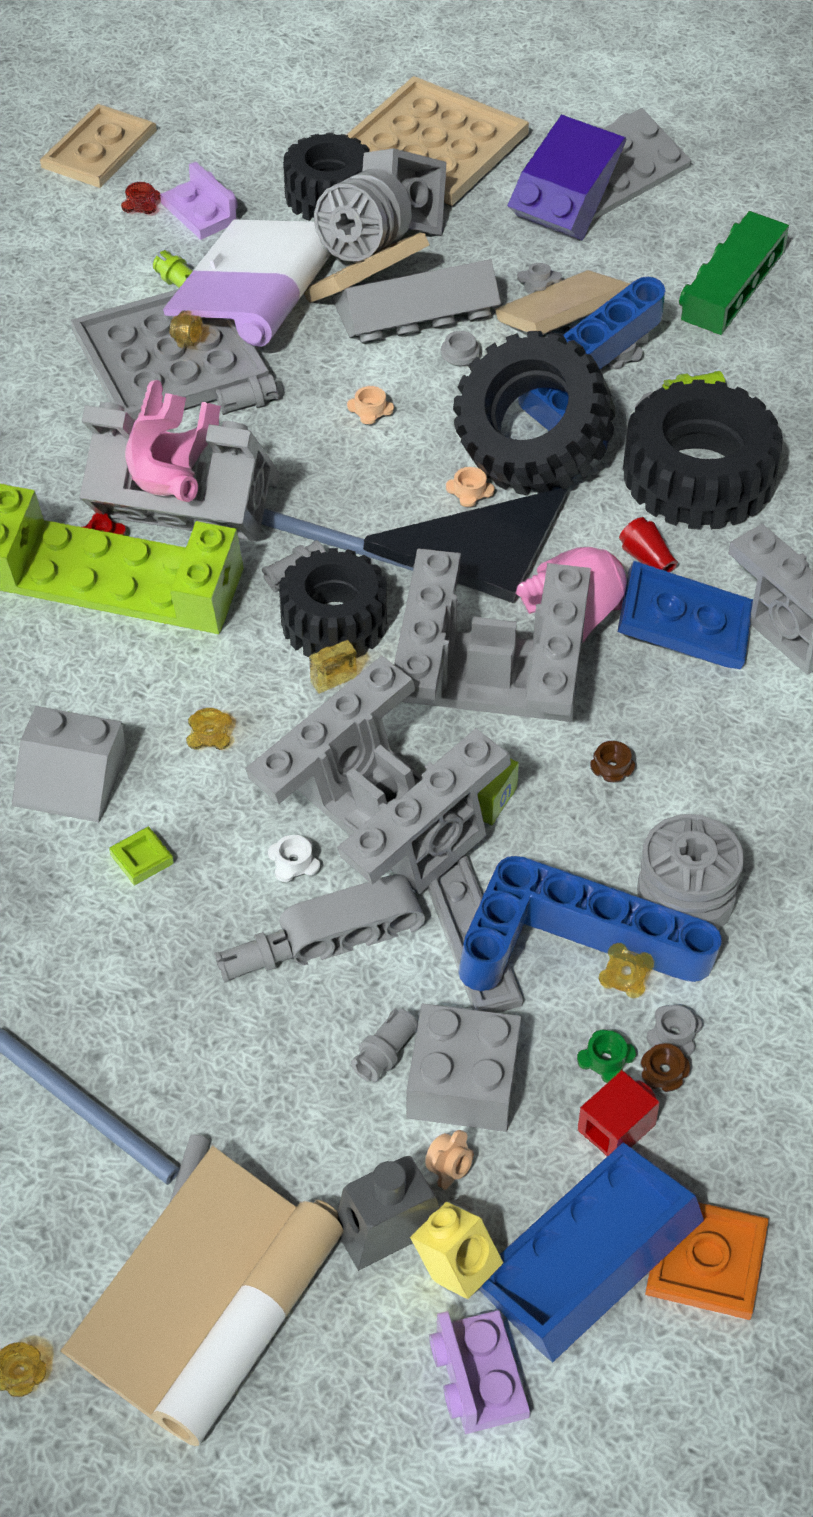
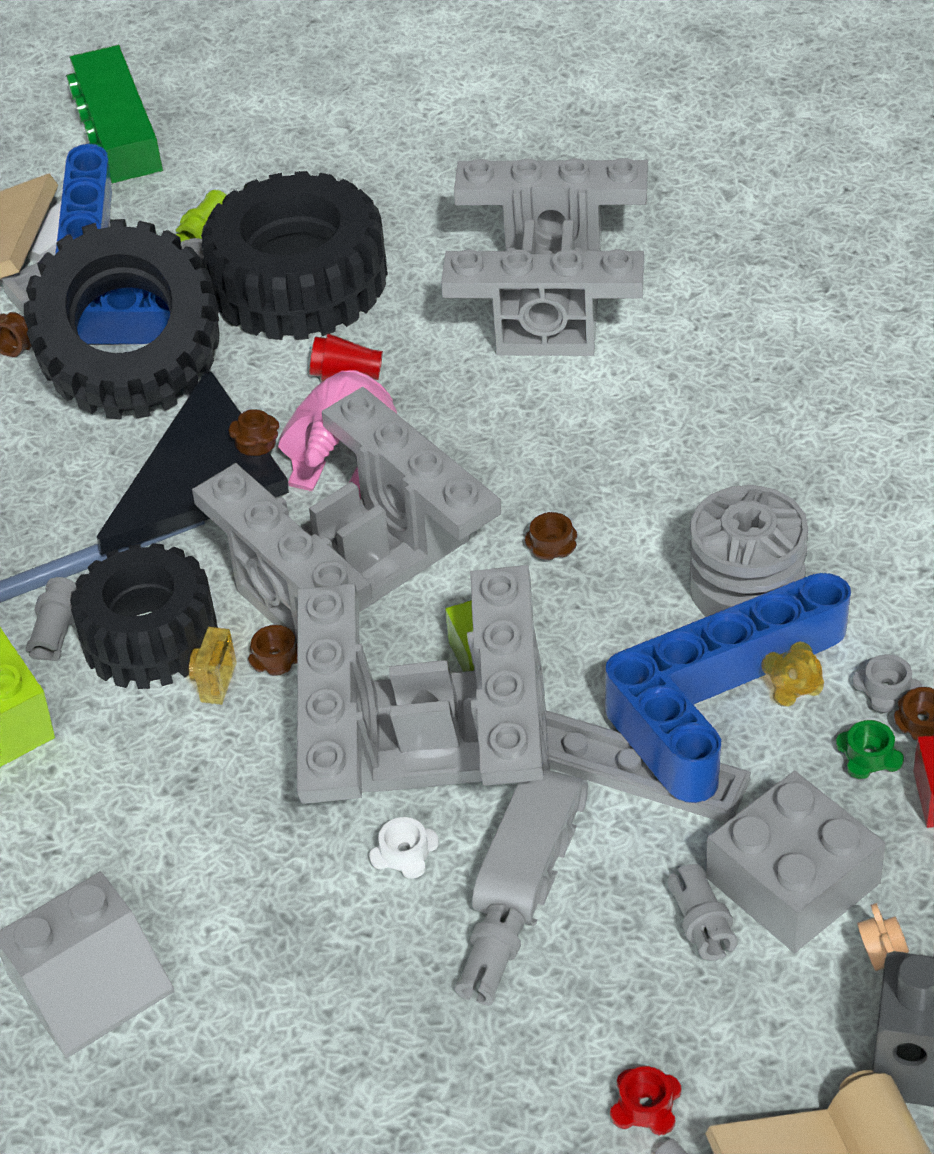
camera: 45 degrees left, 5 degrees down
(141, 855) = (261, 977): lime tile -> none
(209, 719) = (167, 804): clear yellow plate -> none
(215, 1095) = (648, 1083): none -> red plate
(469, 486) = (120, 433): light nougat plate -> none
(529, 548) = (254, 432): none -> reddish brown plate
(685, 616) = (454, 382): blue tile -> none

